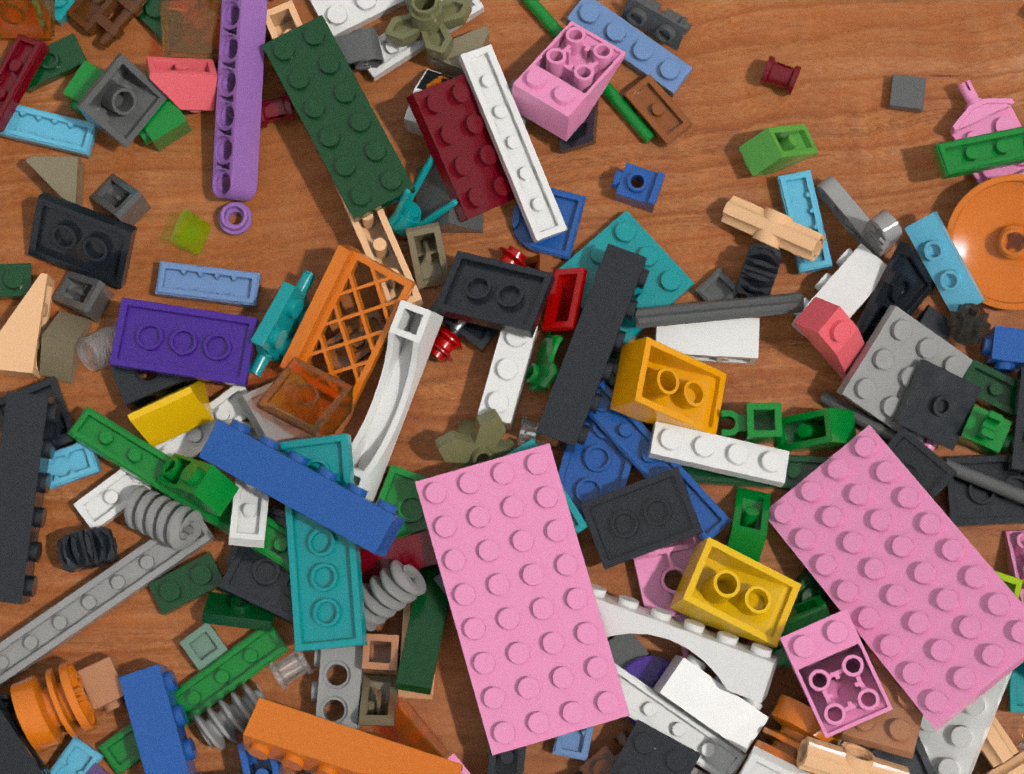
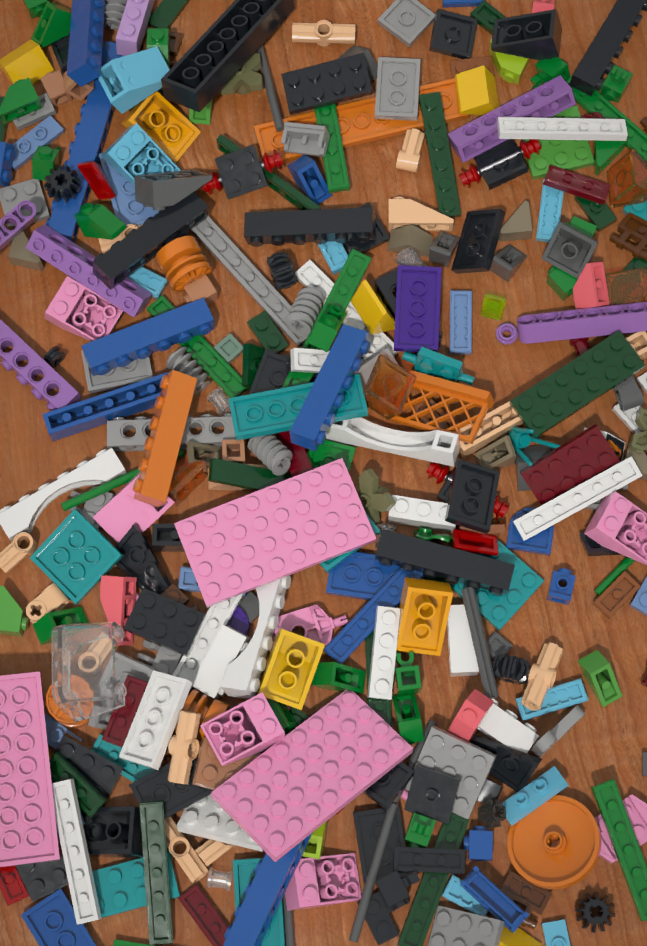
camera: 85 degrees right, 5 degrees down
(641, 518) = (335, 605): black plate -> none

